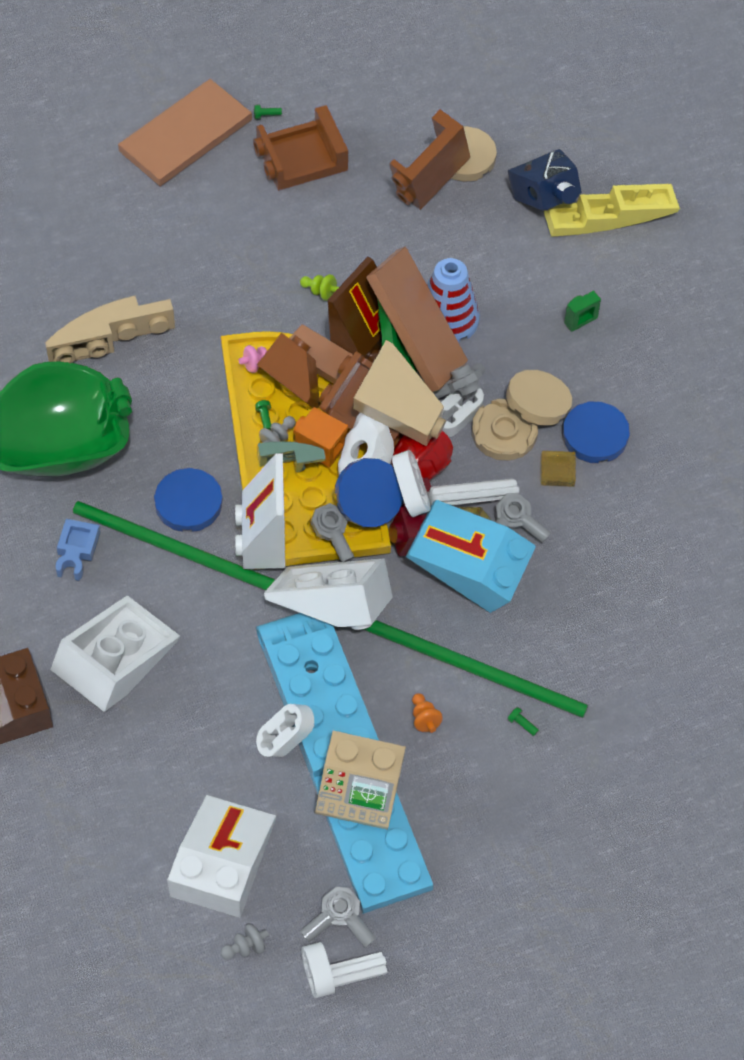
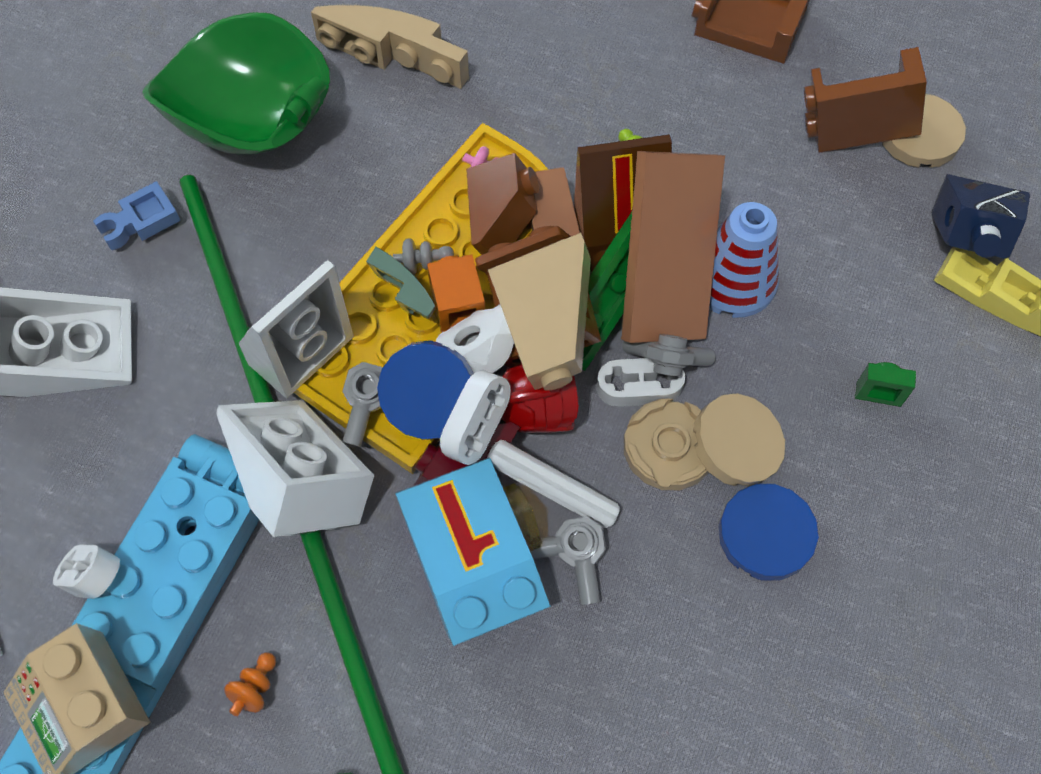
camera: 45 degrees right, 5 degrees up
(188, 499) = (284, 253): blue tile -> none
(263, 407) = (440, 220): green piece -> none
(558, 468) = (684, 536): clear yellow tile -> none

